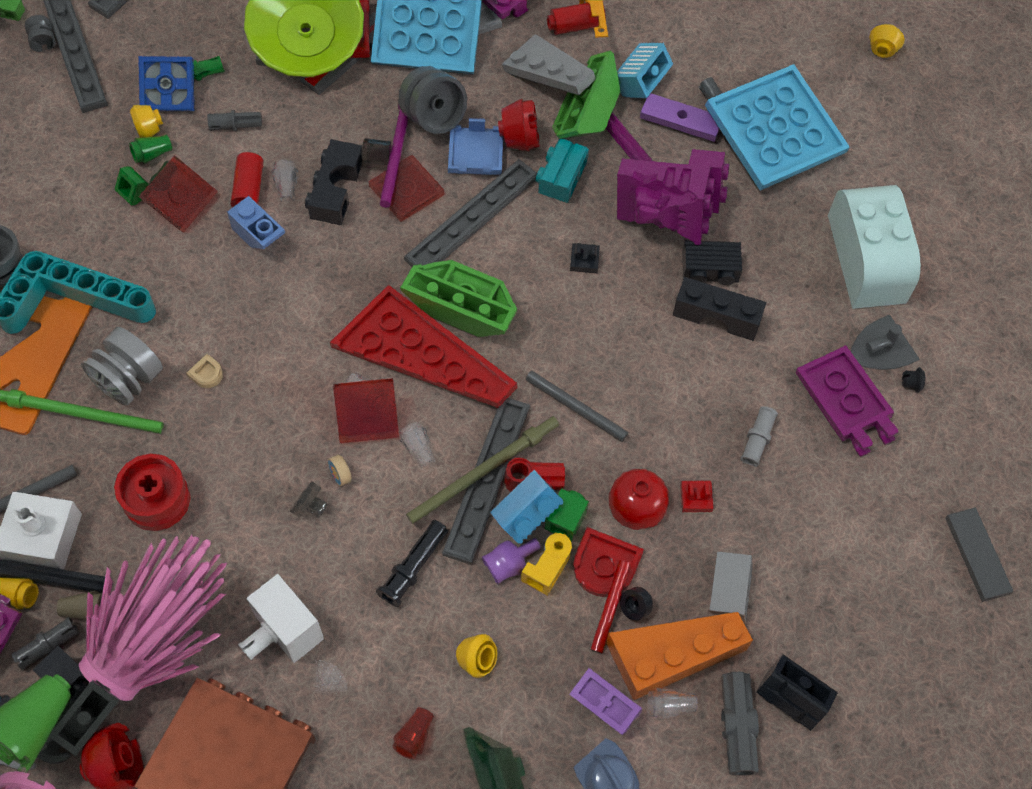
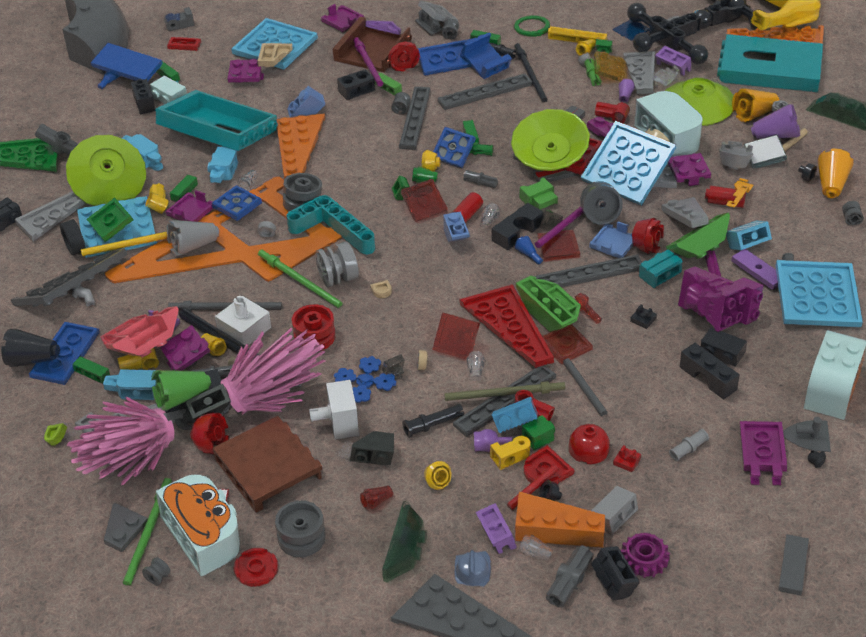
camera: 35 degrees right, 20 degrees down
(170, 42) = (469, 128): none -> green piece
(277, 540) = (365, 381): none -> blue plant
(333, 116) = (539, 194): none -> bright green piece
(366, 211) = (526, 247): none -> blue cone
(369, 655) = (374, 449): none -> pearl dark grey slope
(498, 270) = (583, 300): none -> clear red bar
(515, 350) = (567, 343): none -> clear red tile
(816, 624) = (646, 554): none -> magenta gear

